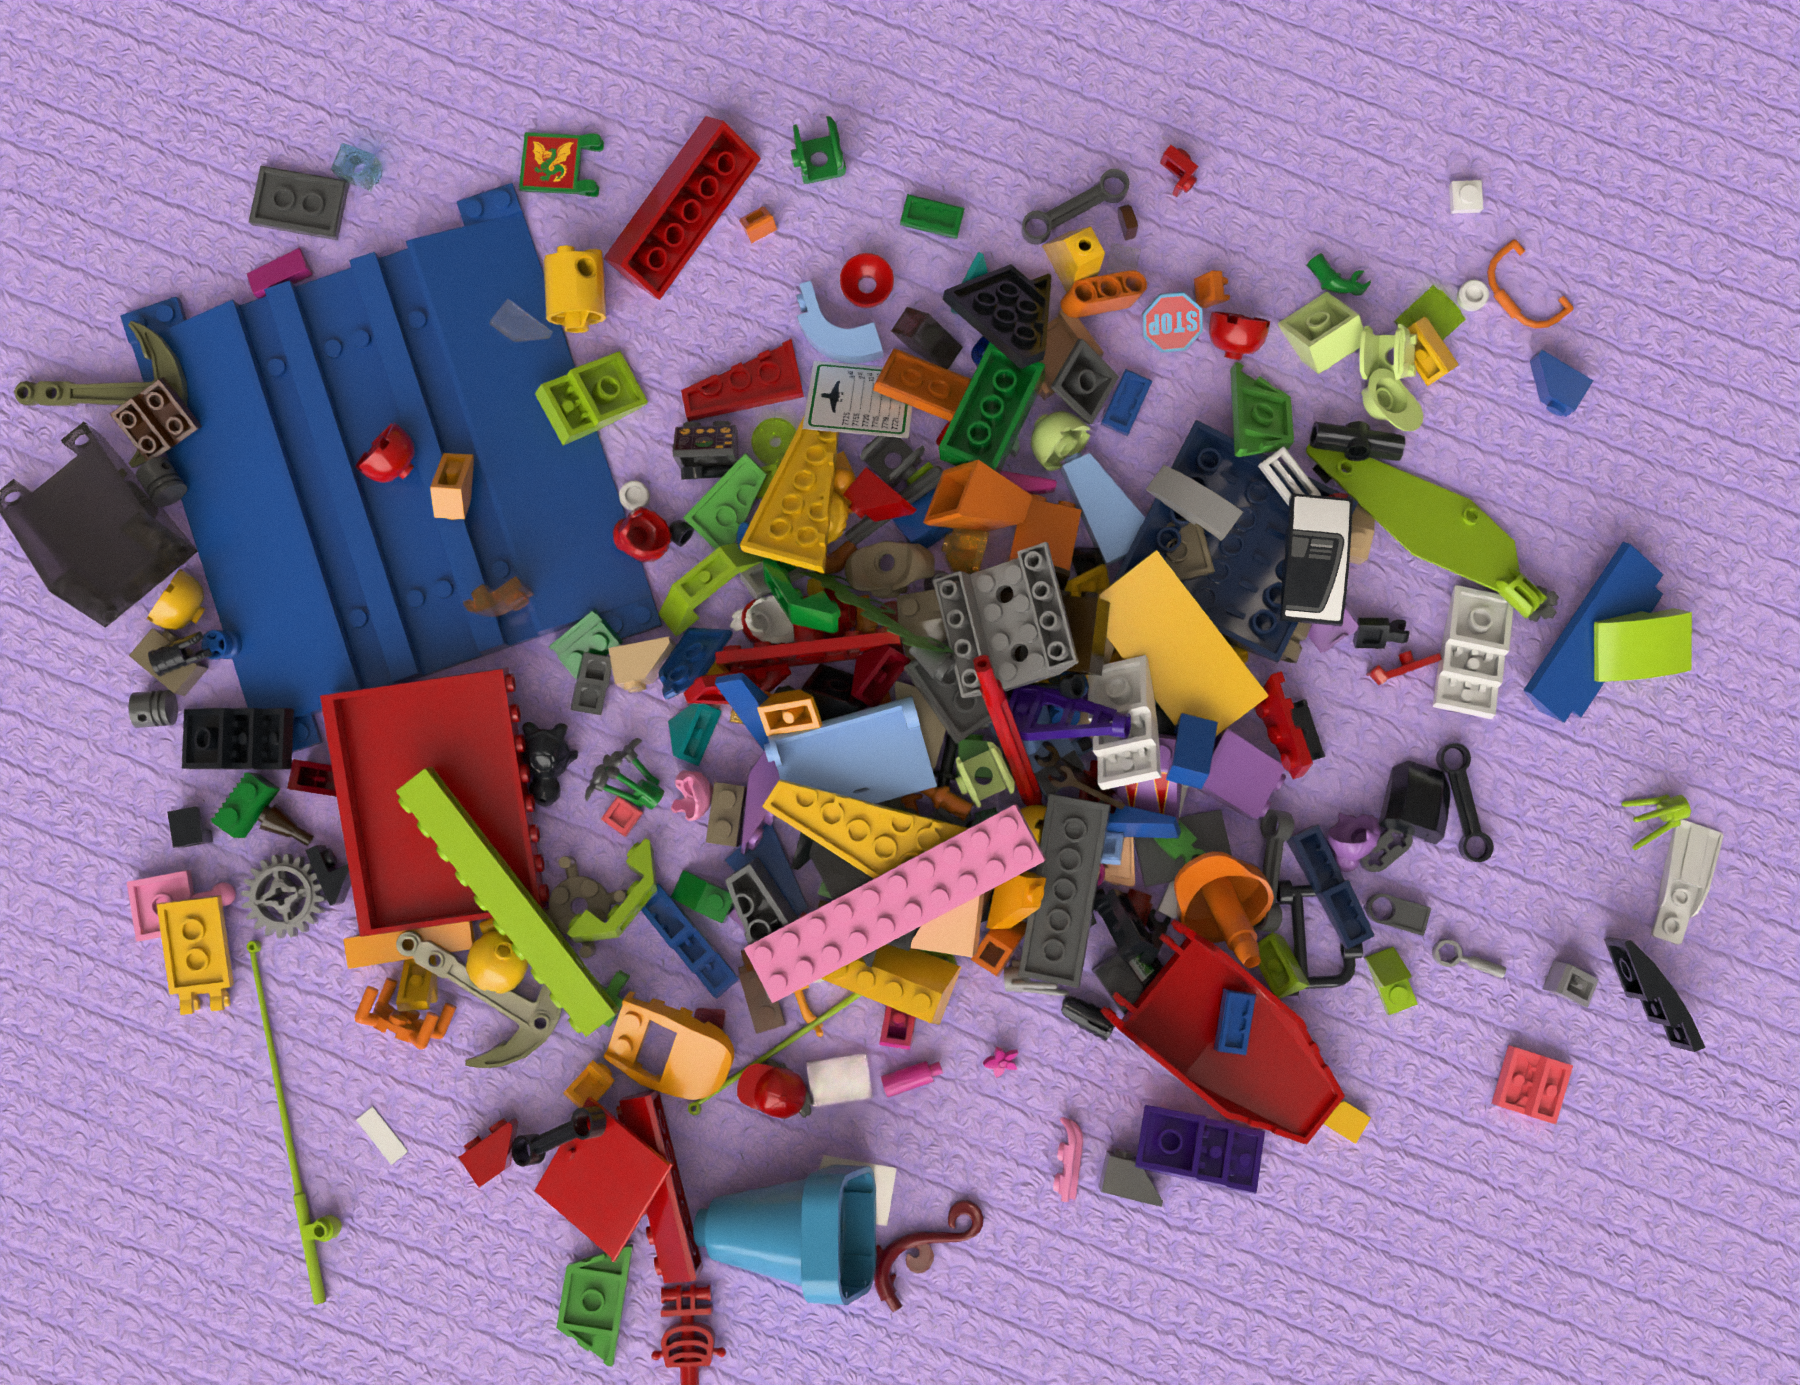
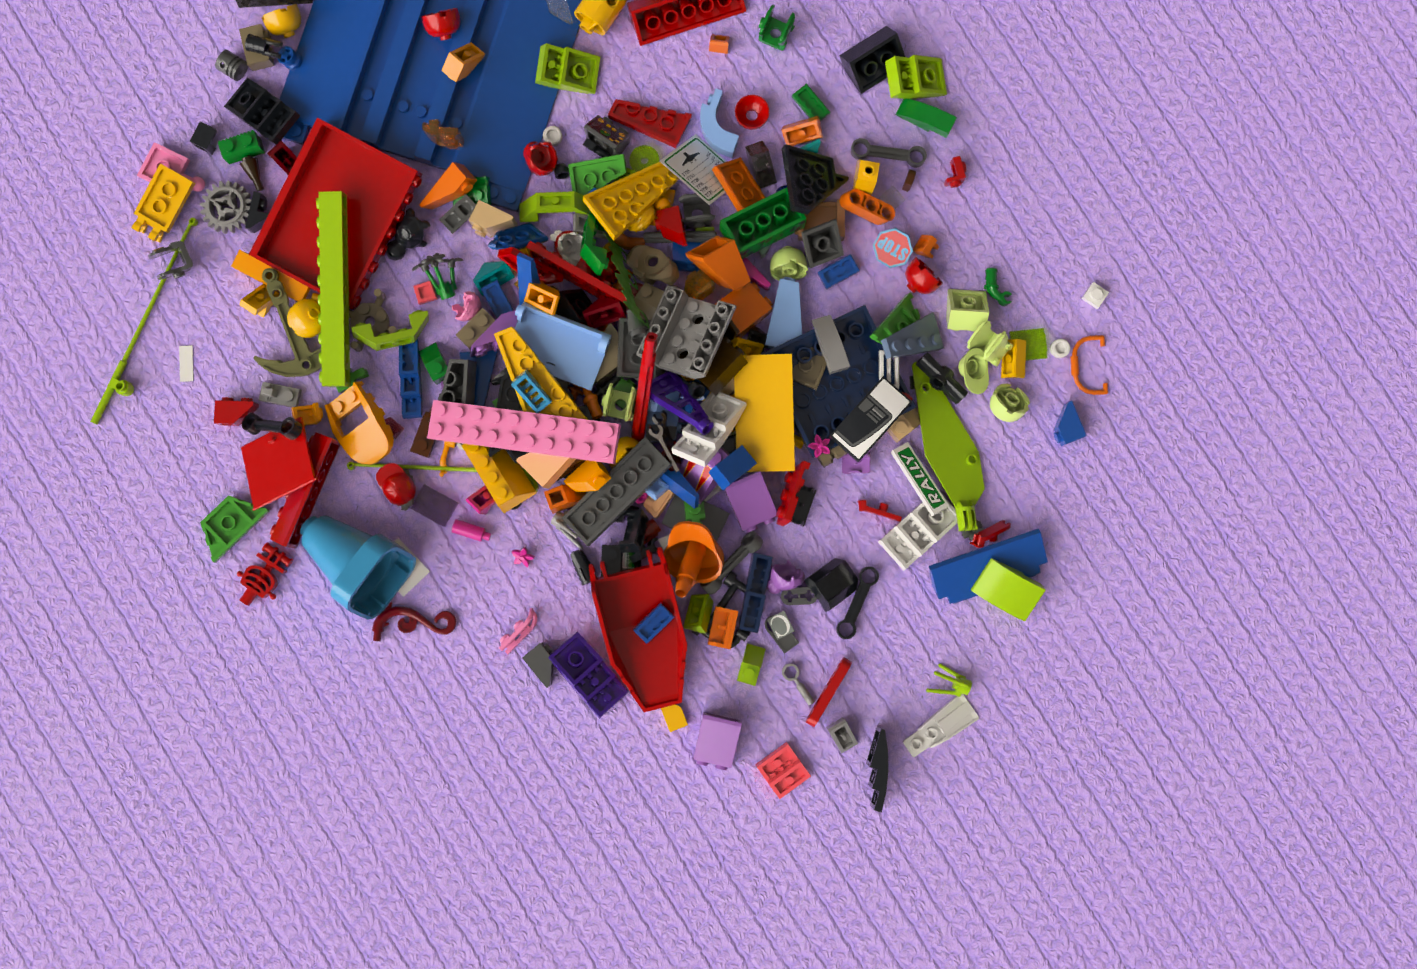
camera: 30 degrees right, 0 degrees up
(278, 1000) = (178, 272): none -> dark grey piece
(403, 1023) = (239, 316): orange plate -> none
(534, 1086) = (280, 394): none -> light grey hinge
(557, 652) = (451, 185): none -> orange slope
(724, 758) = (496, 298): none -> blue plate
(840, 837) = (536, 387): none -> dark azure slope
(947, 258) = (802, 131): none -> orange slope
(969, 101) = (867, 59): none -> black slope
(1038, 86) = (915, 77): none -> lime slope
(1089, 126) = (926, 116): none -> green slope
(1277, 641) = (820, 446): none -> dark pink plant
(1289, 416) = (914, 339): none -> sand blue wing
(1325, 961) = (722, 627): none -> orange hinge
(1378, 631) = (878, 482): black plate -> none
(1392, 903) = (780, 625): none -> light grey sticker
(1424, 1109) = (717, 741): none -> medium lavender slope
(1426, 588) = (920, 479): none -> tile
(1466, 411) = (1009, 403): none -> yellowish green cylinder
(1515, 942) = (828, 692): none -> red beam
(1565, 592) = (990, 533): none -> red piece

